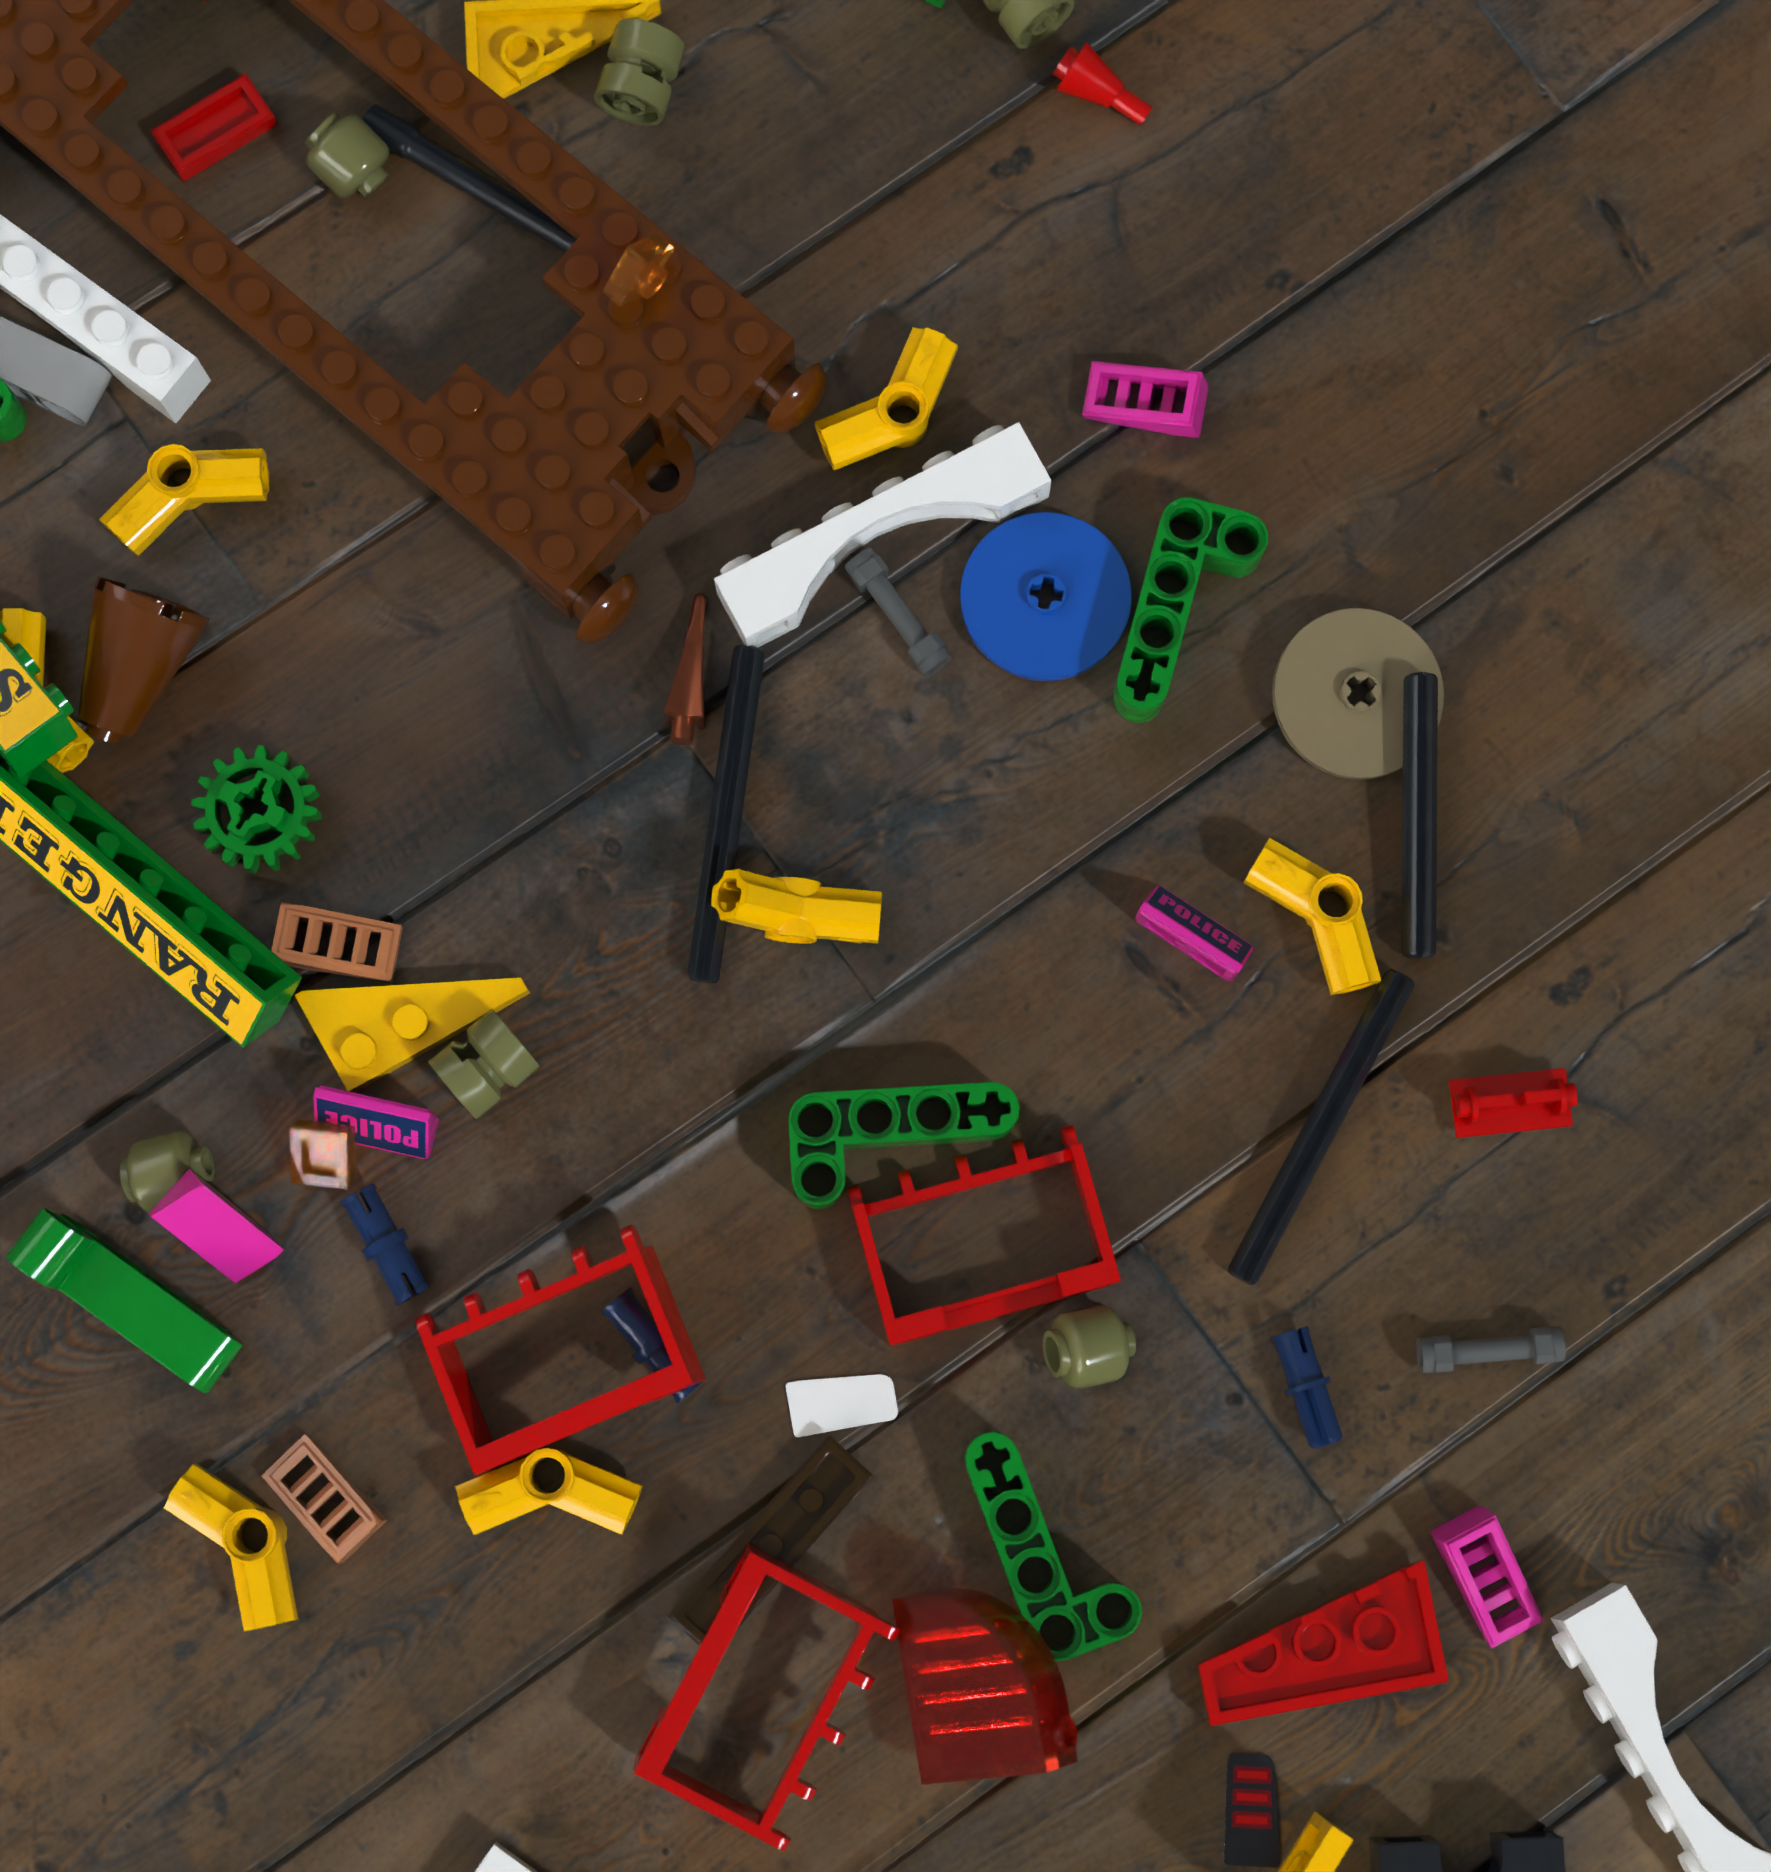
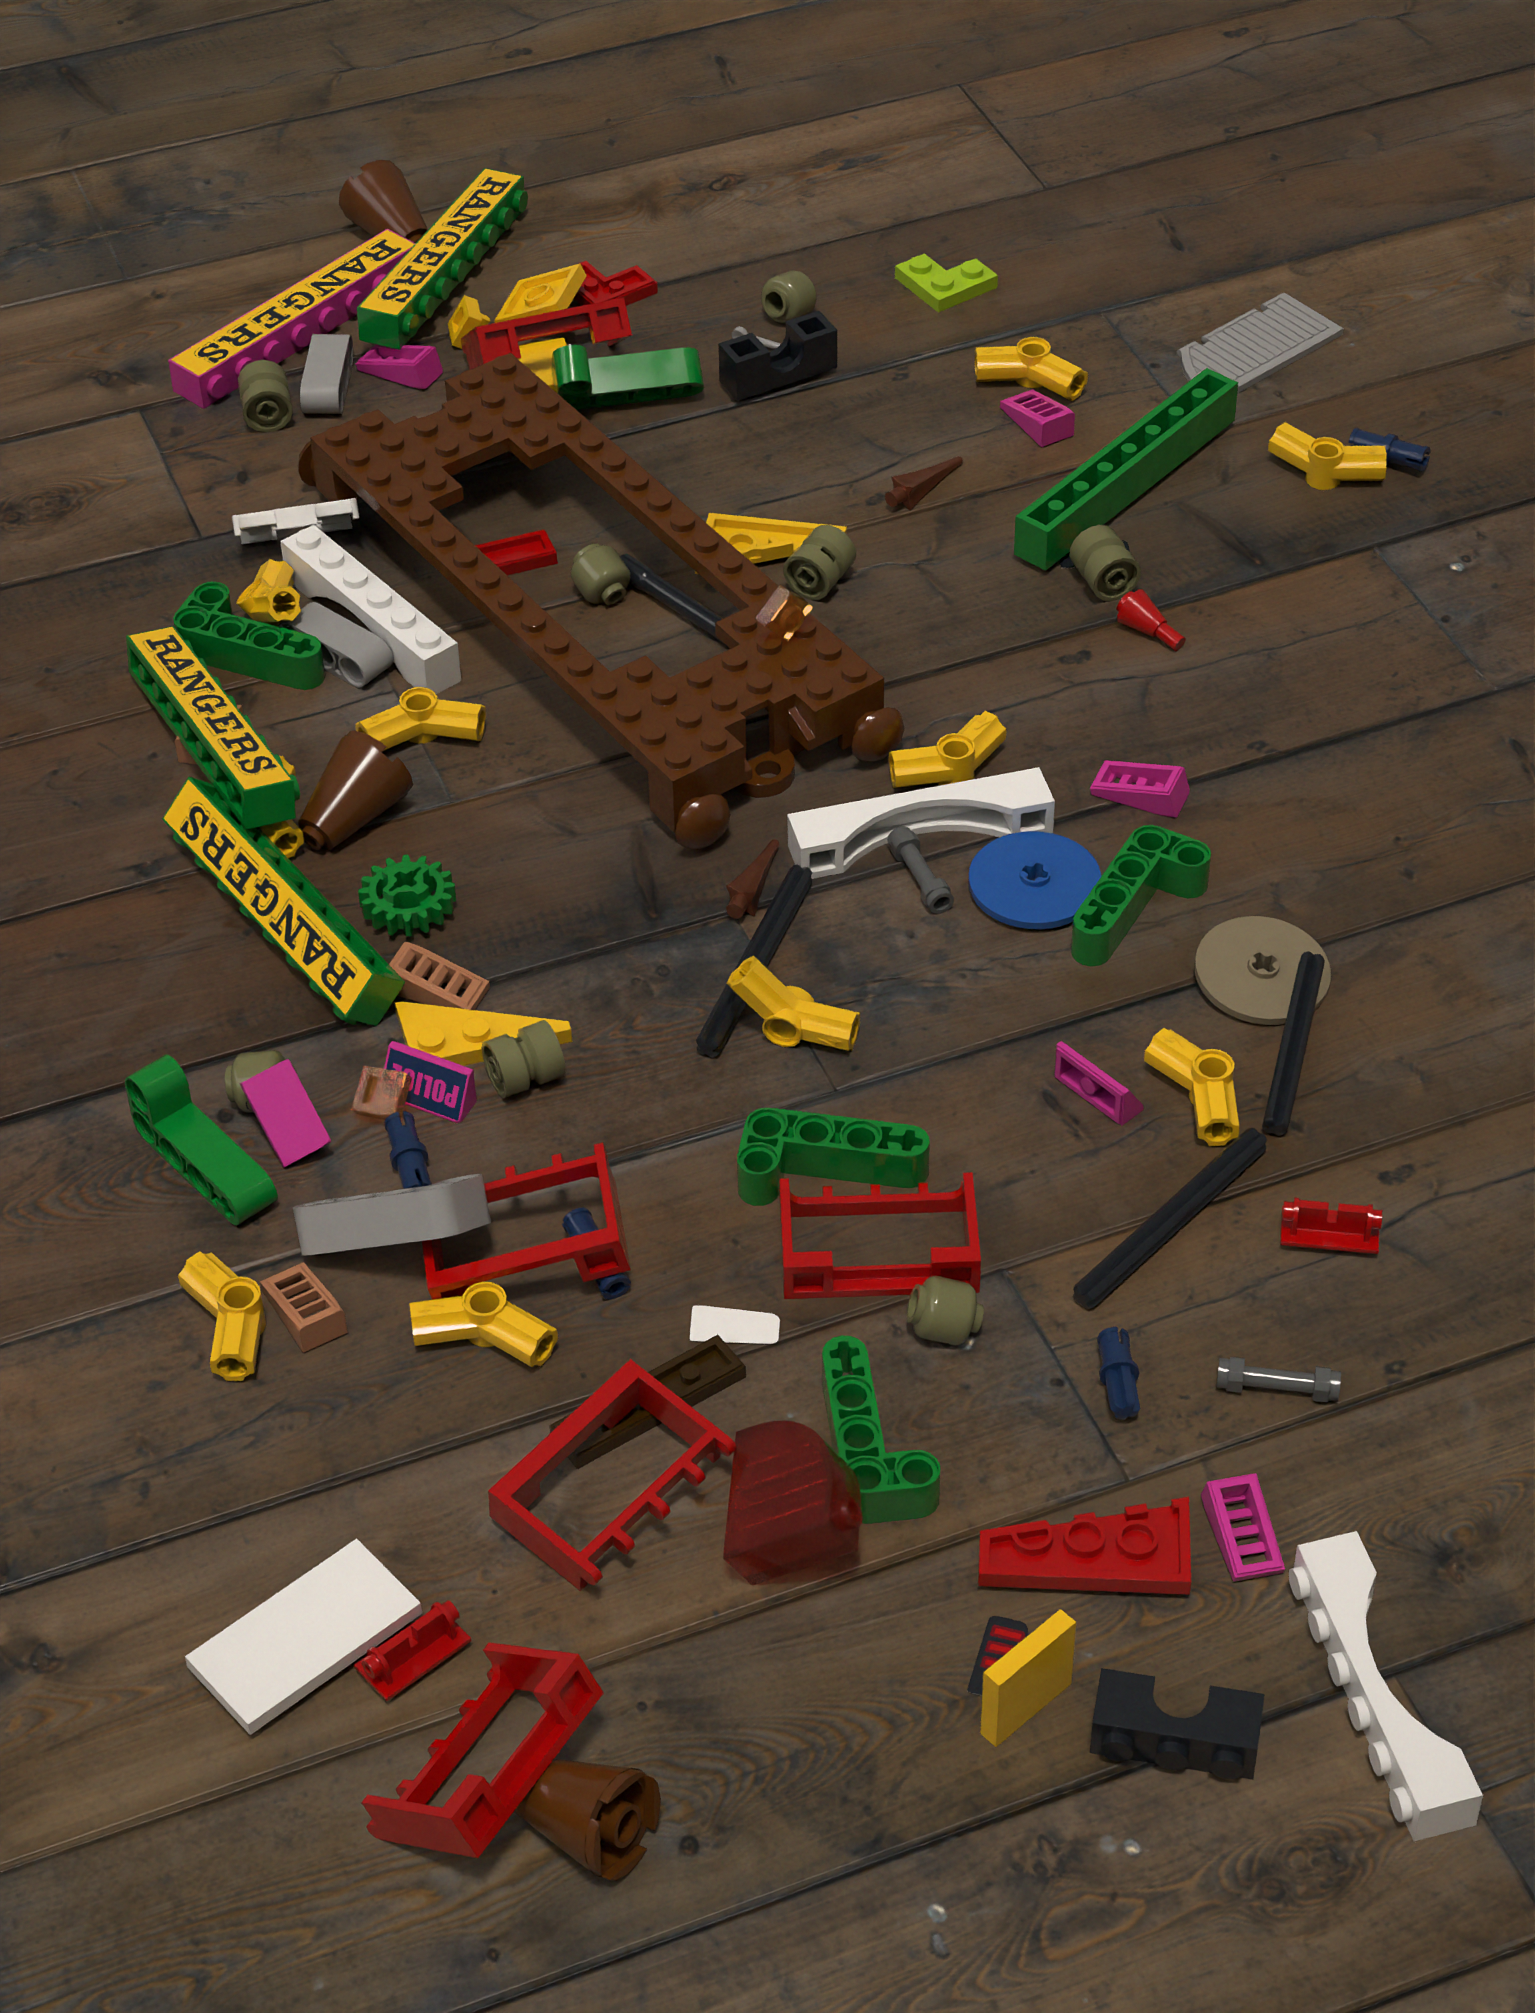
camera: 15 degrees right, 35 degrees down
(407, 1394) = (392, 1216): none -> light grey beam

